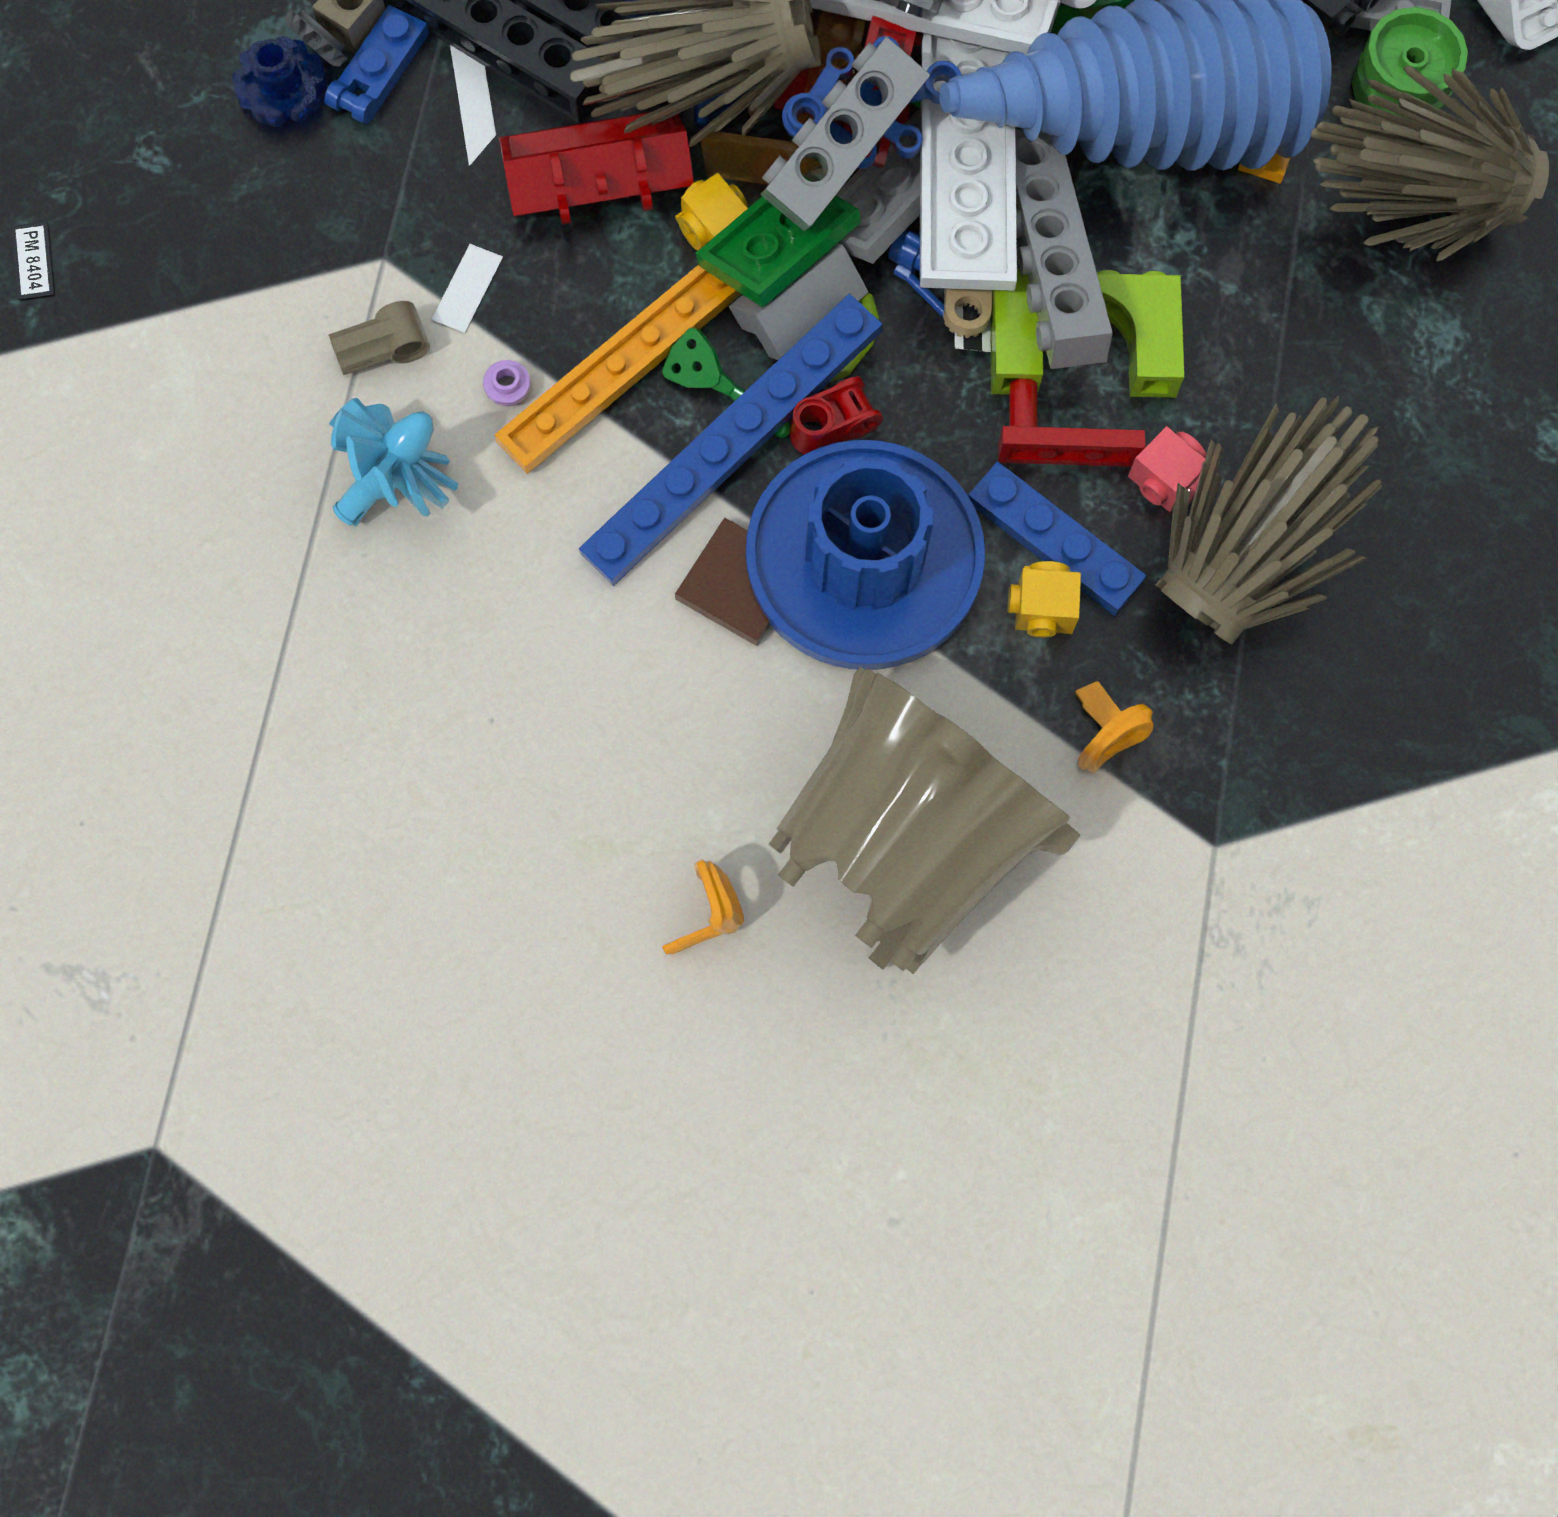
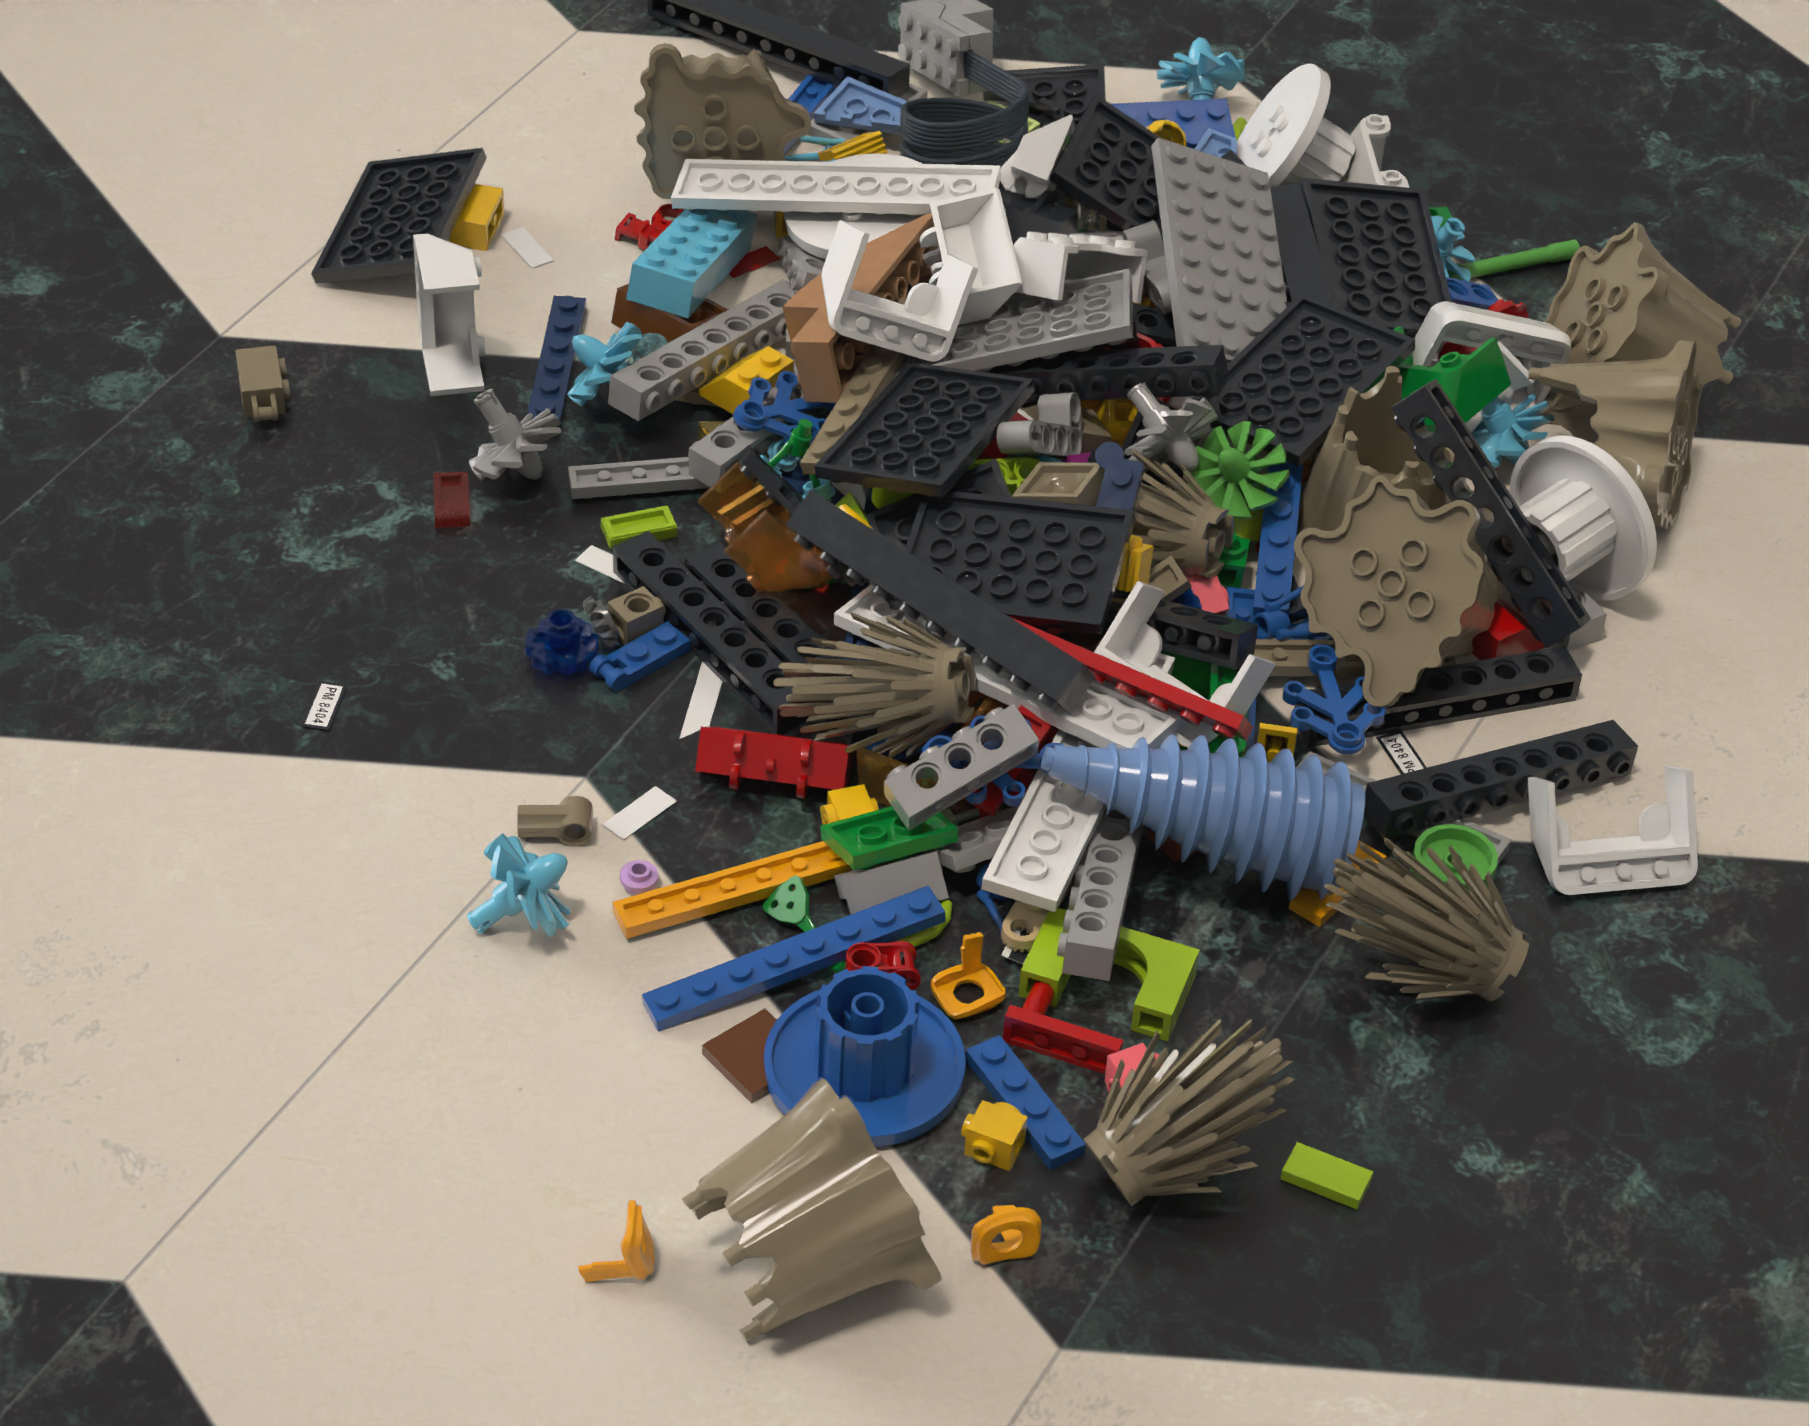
camera: 20 degrees right, 30 degrees down
(937, 383) = (968, 972): none -> light orange piece
(1414, 520) = (1327, 1175): none -> lime tile

